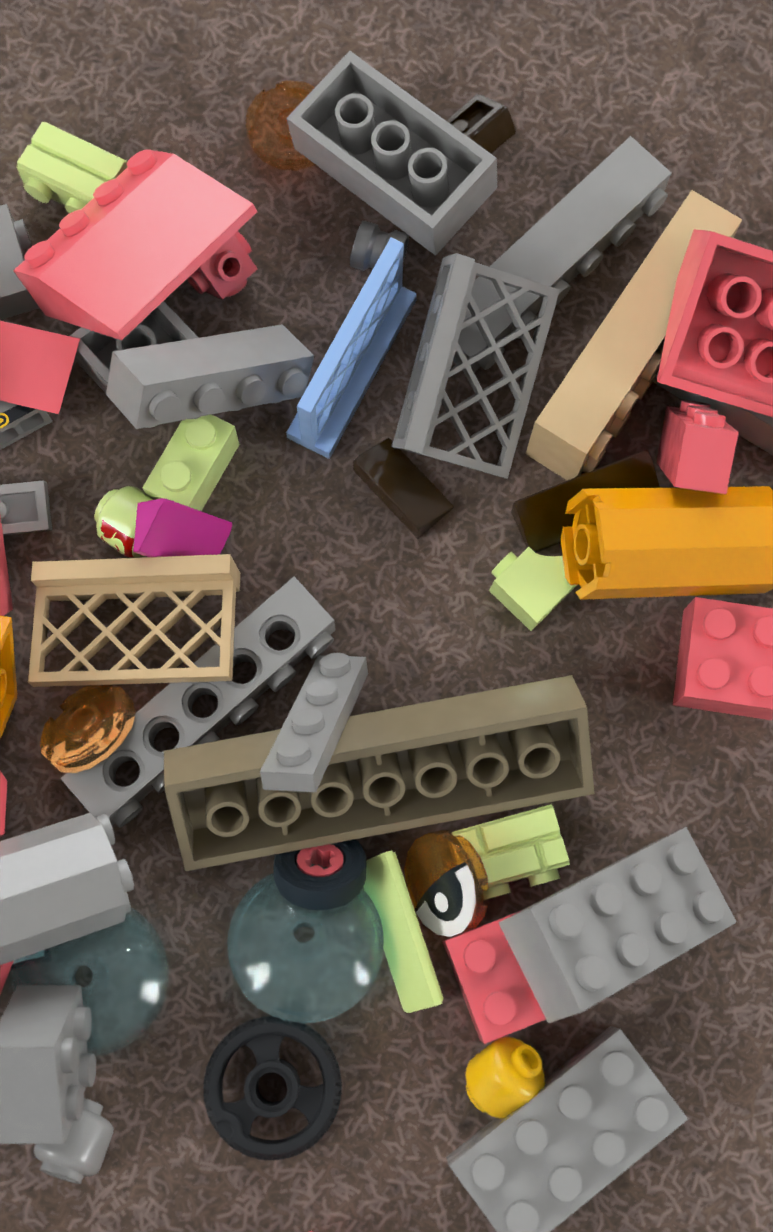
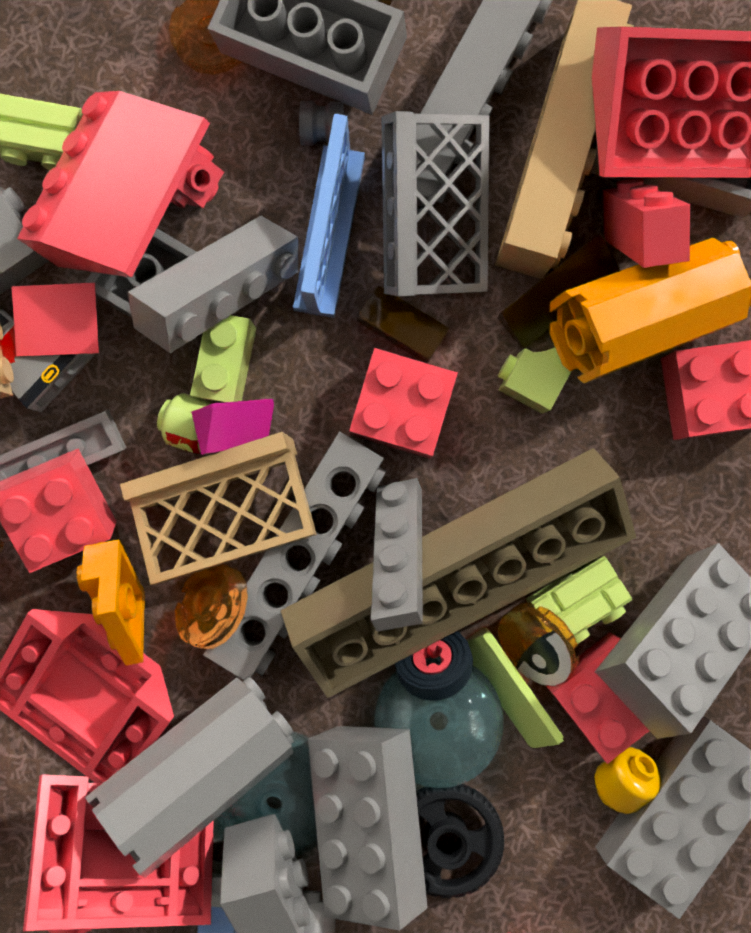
camera: 10 degrees left, 10 degrees up
(183, 1034) = (367, 825): none -> light grey brick
(374, 569) = (403, 403): none -> coral brick

